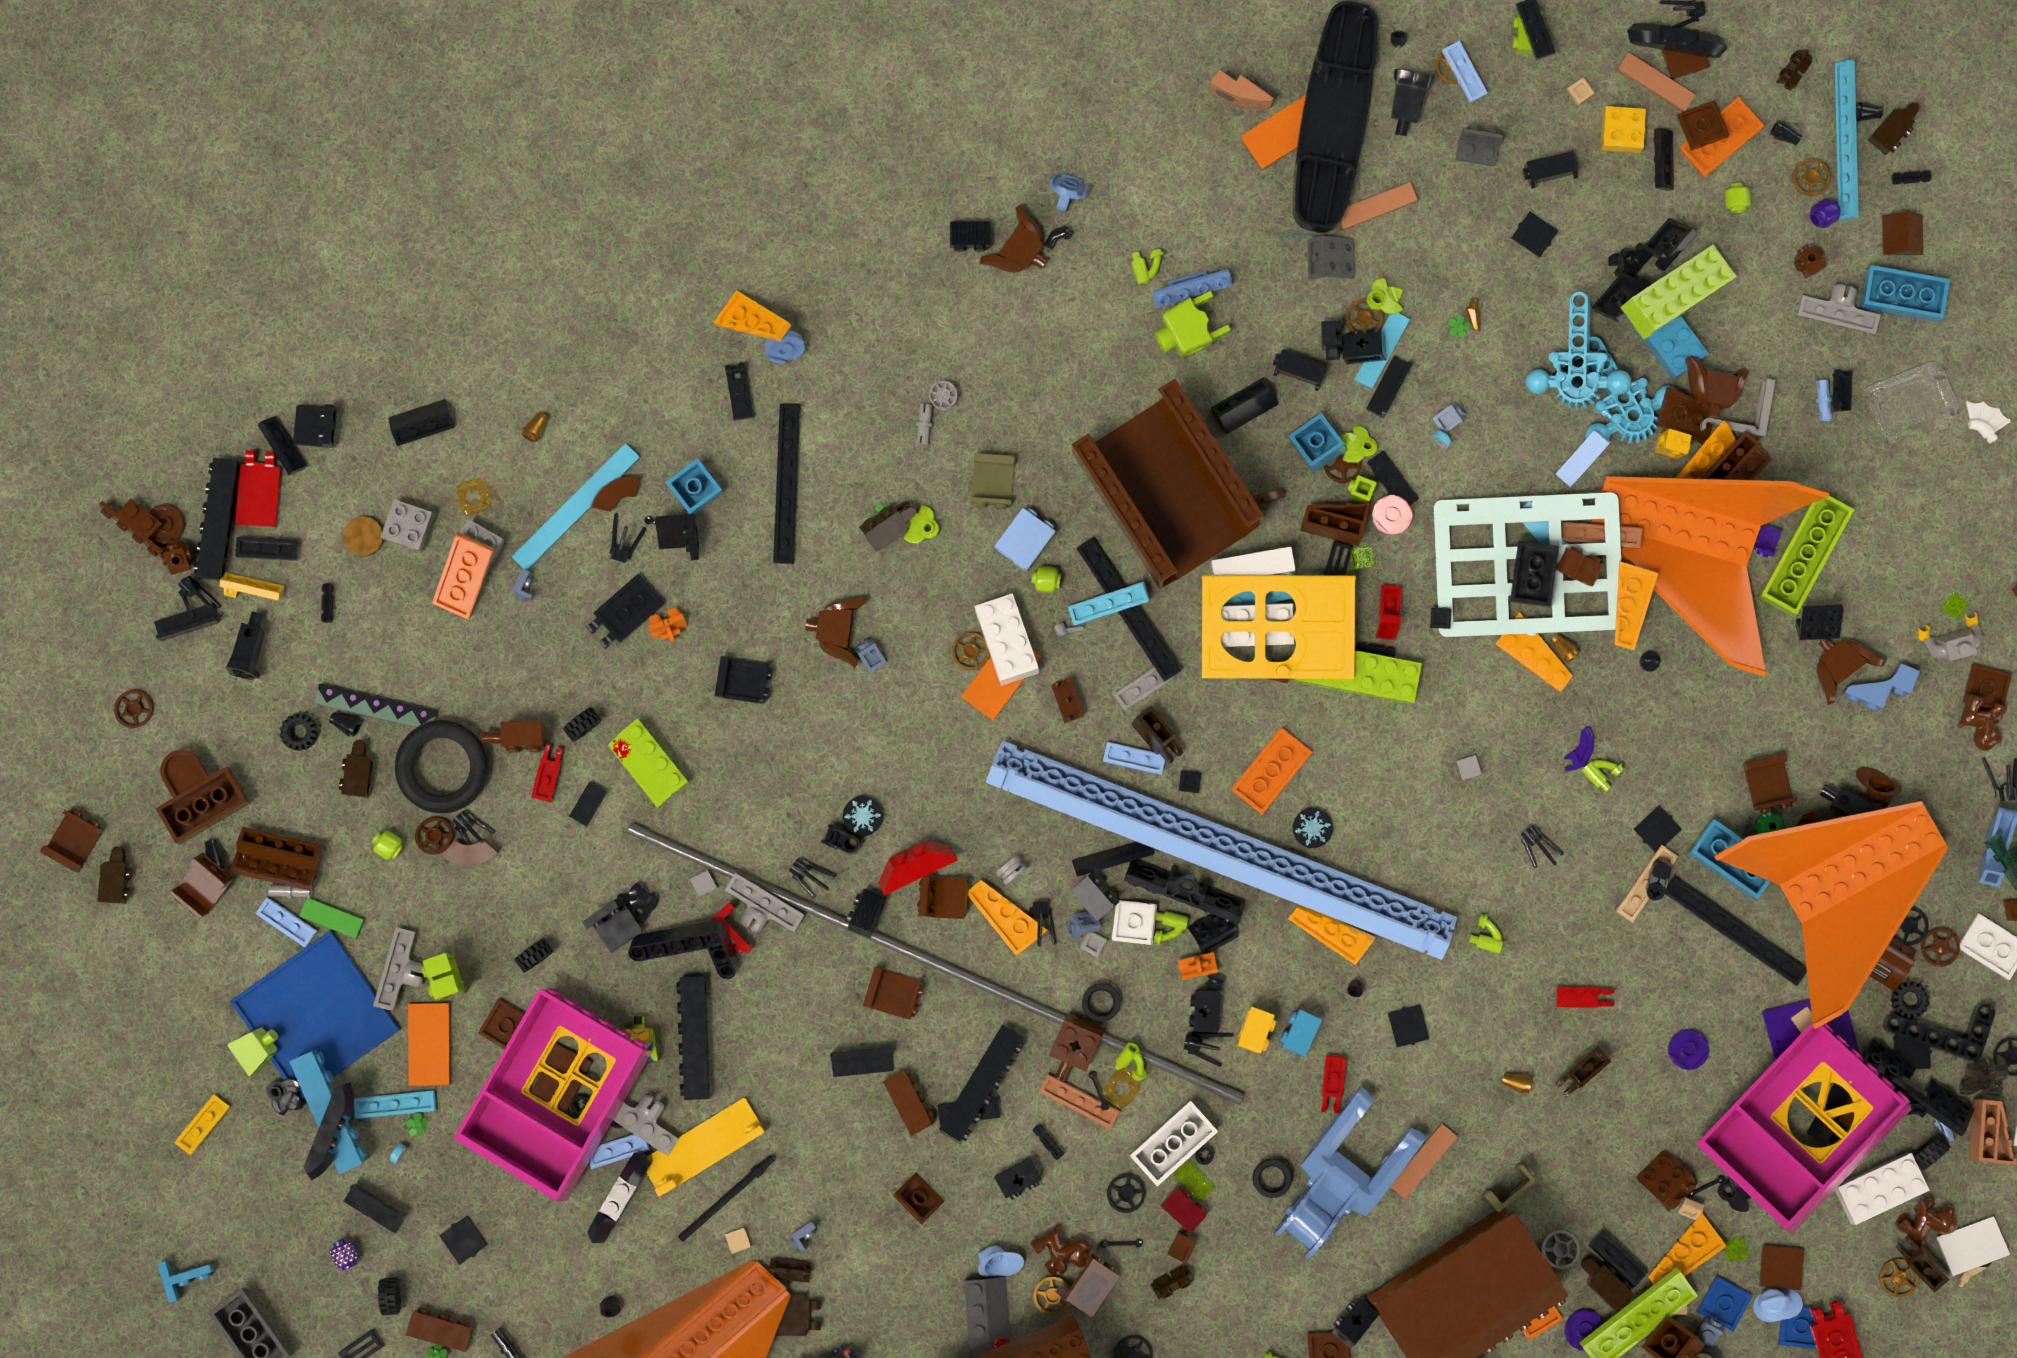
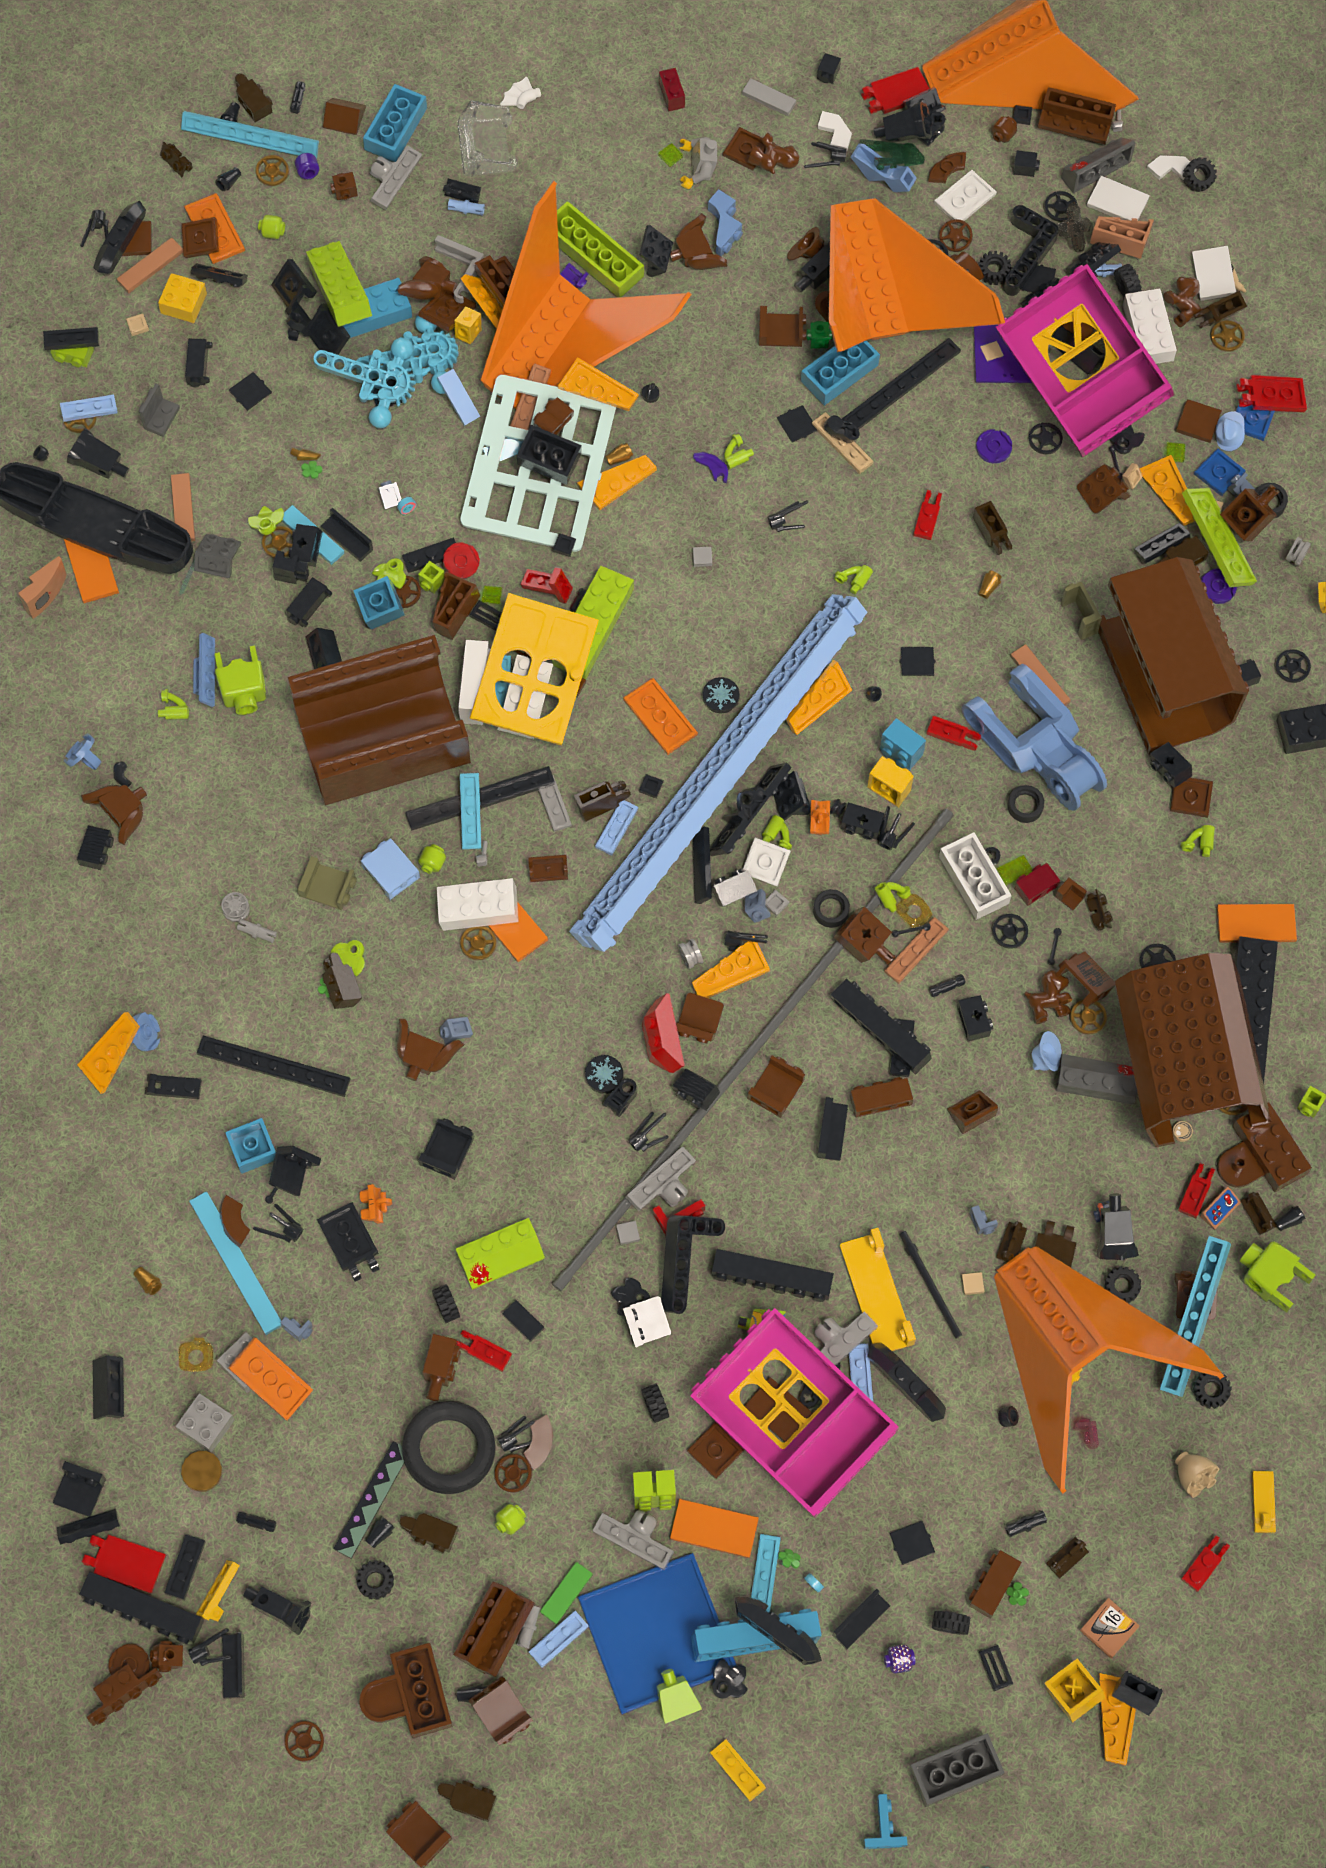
camera: 75 degrees left, 15 degrees down
(1713, 1102) = (1045, 438): none -> black wheel

